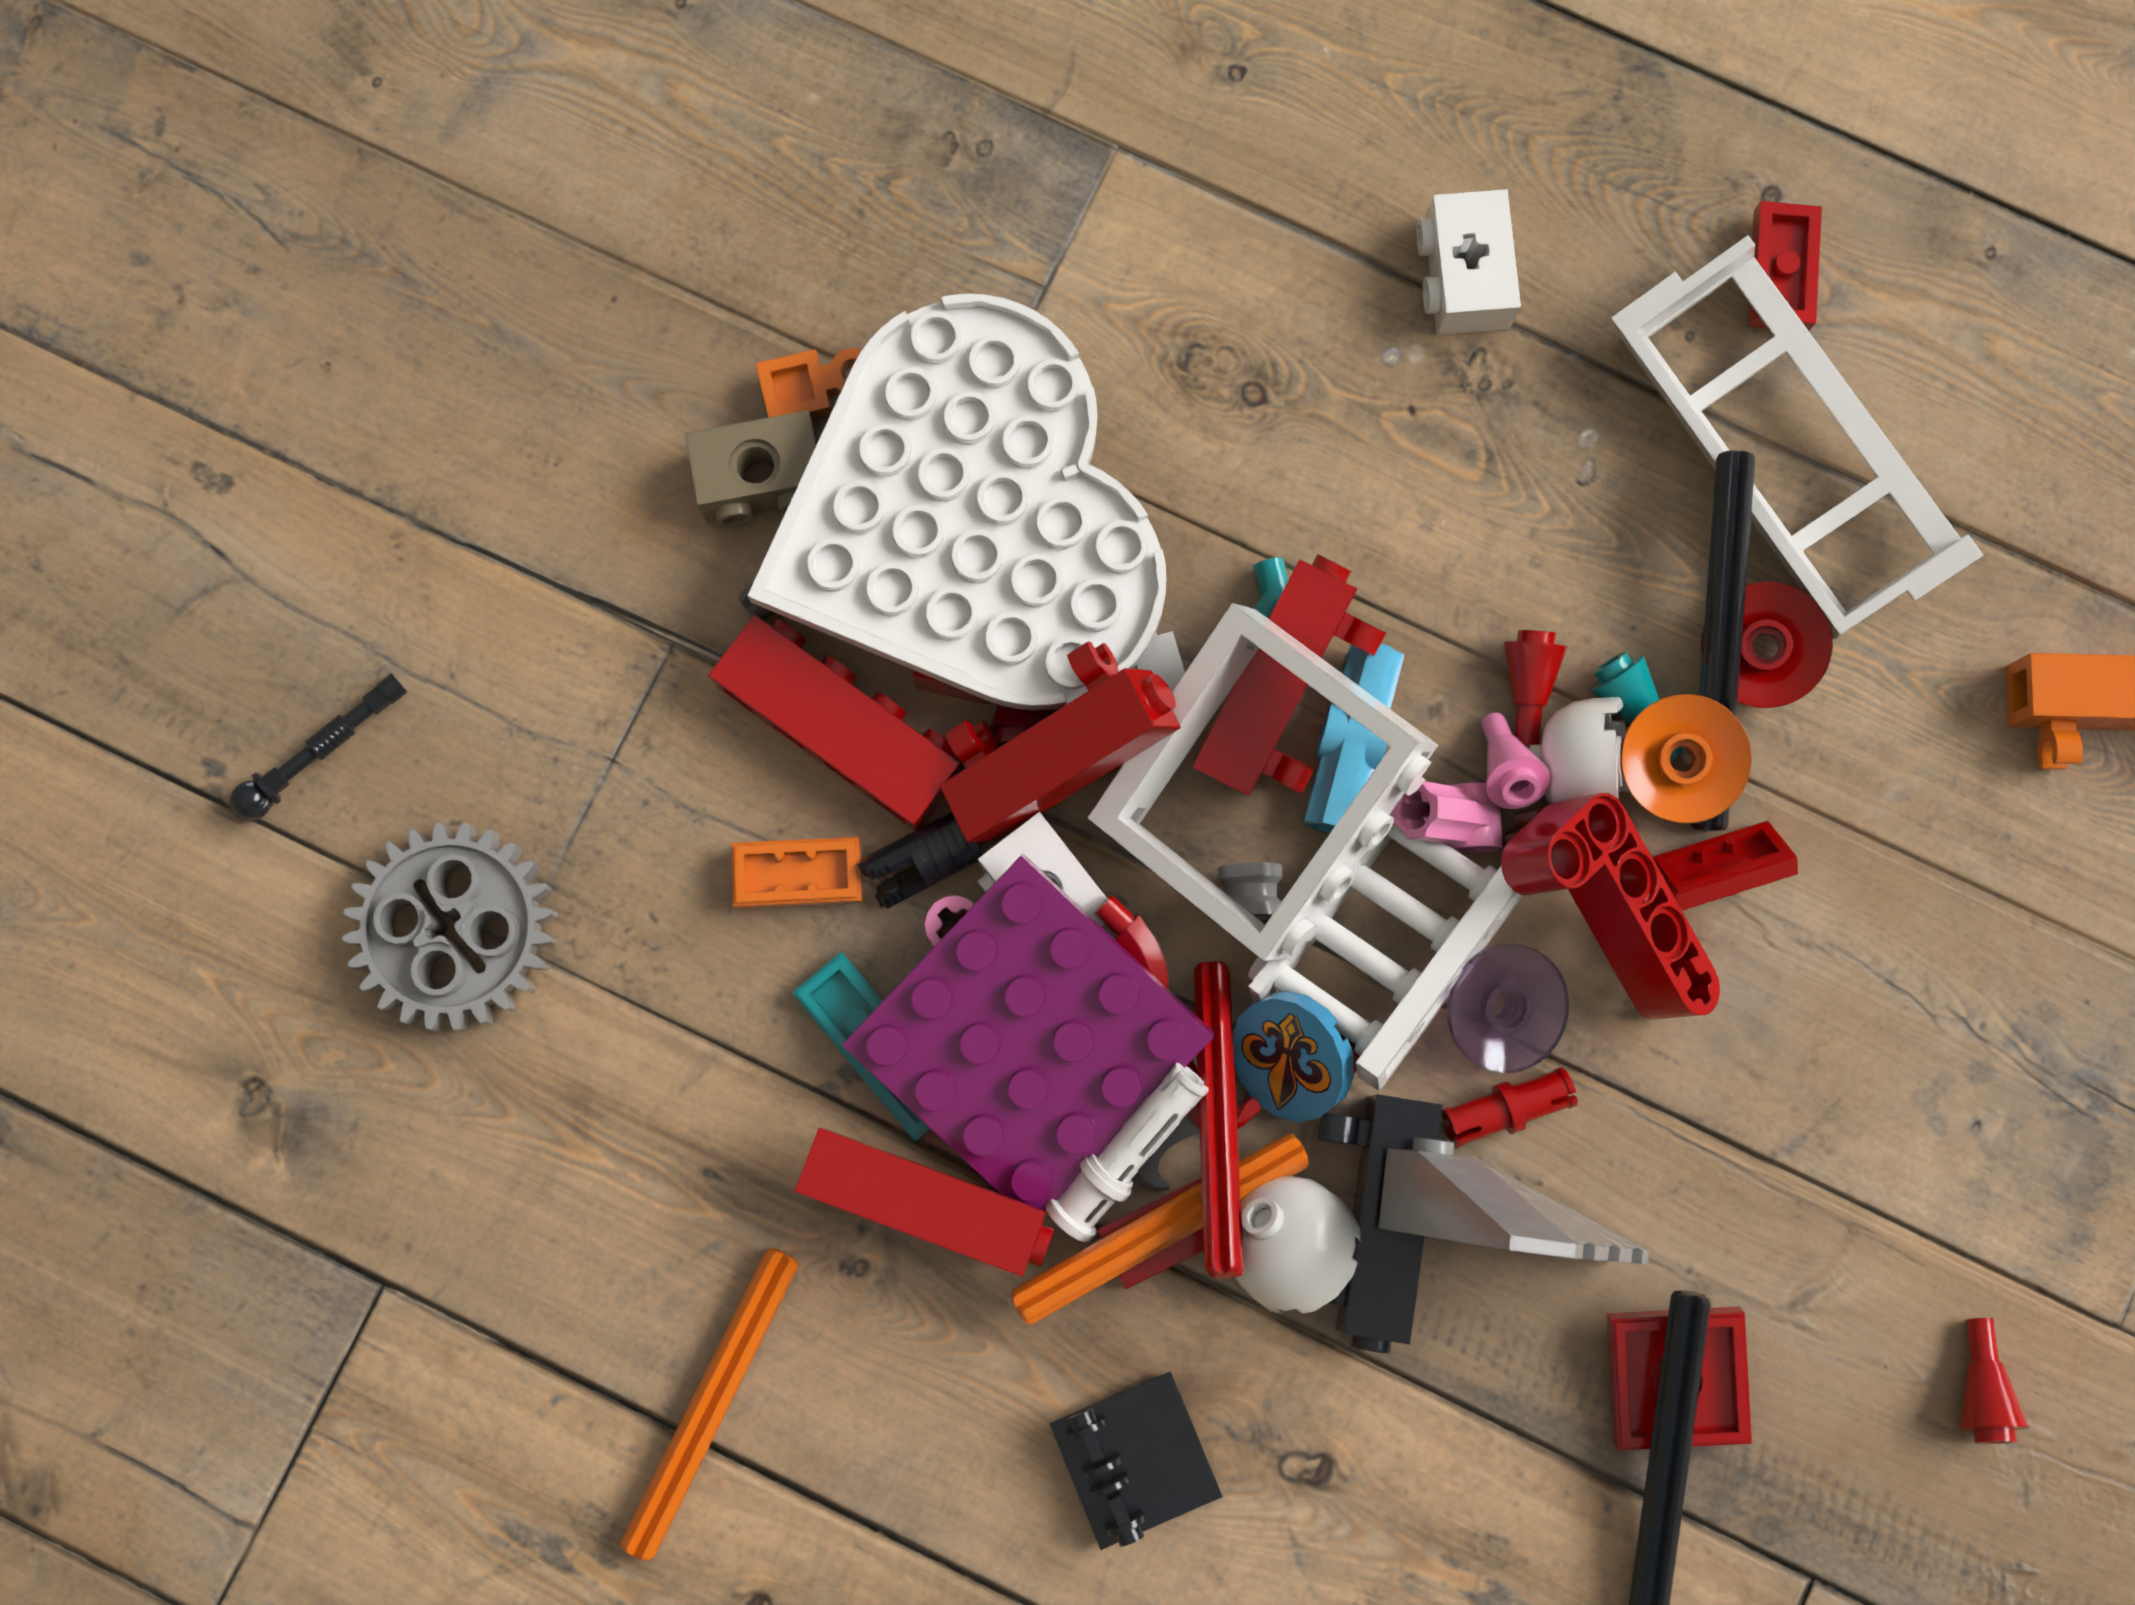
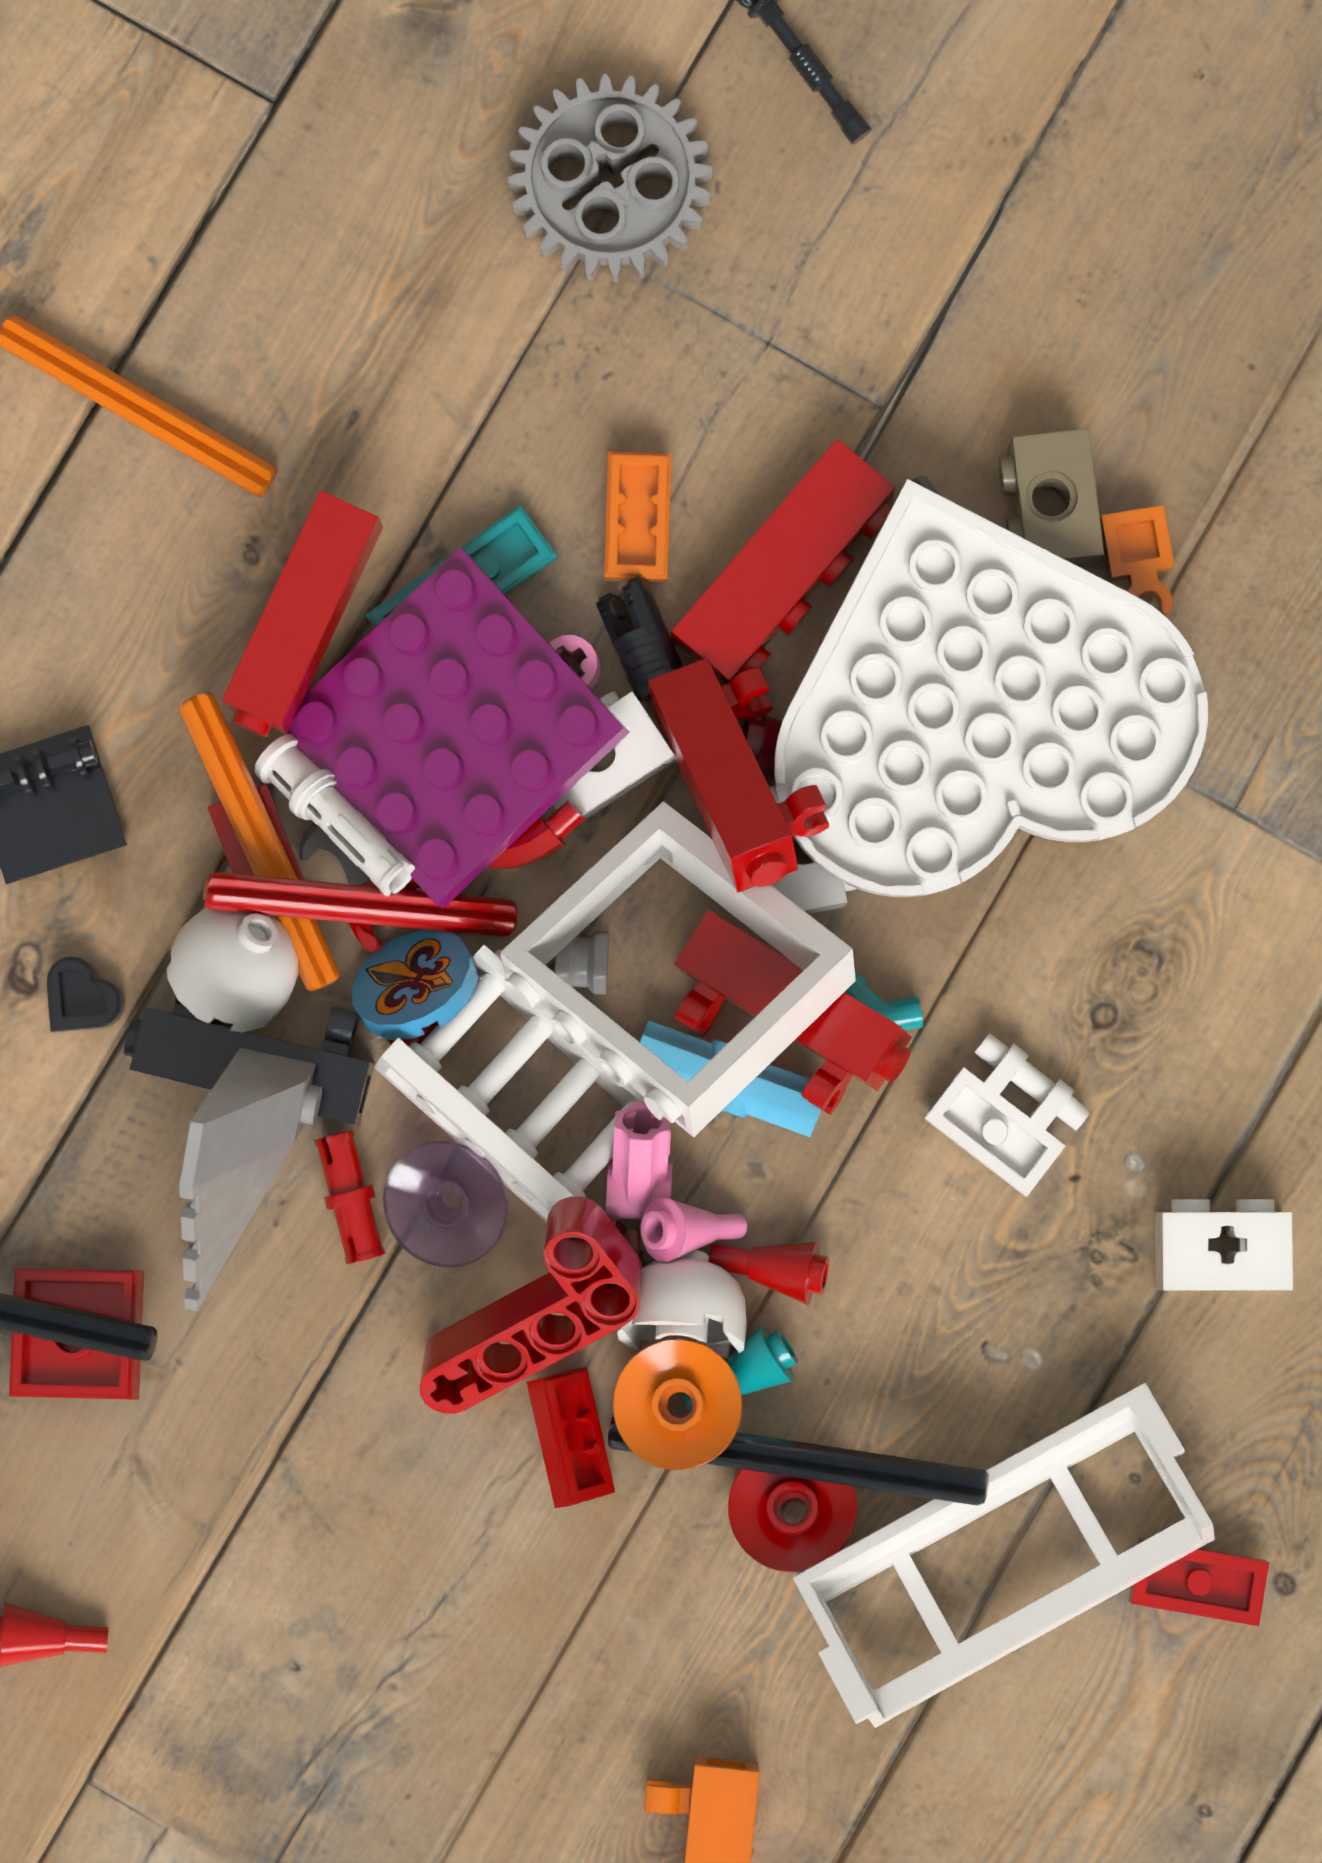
camera: 100 degrees right, 5 degrees up
(1333, 1406) = (79, 998): none -> black tile
(1377, 482) = (994, 1129): none -> white plate

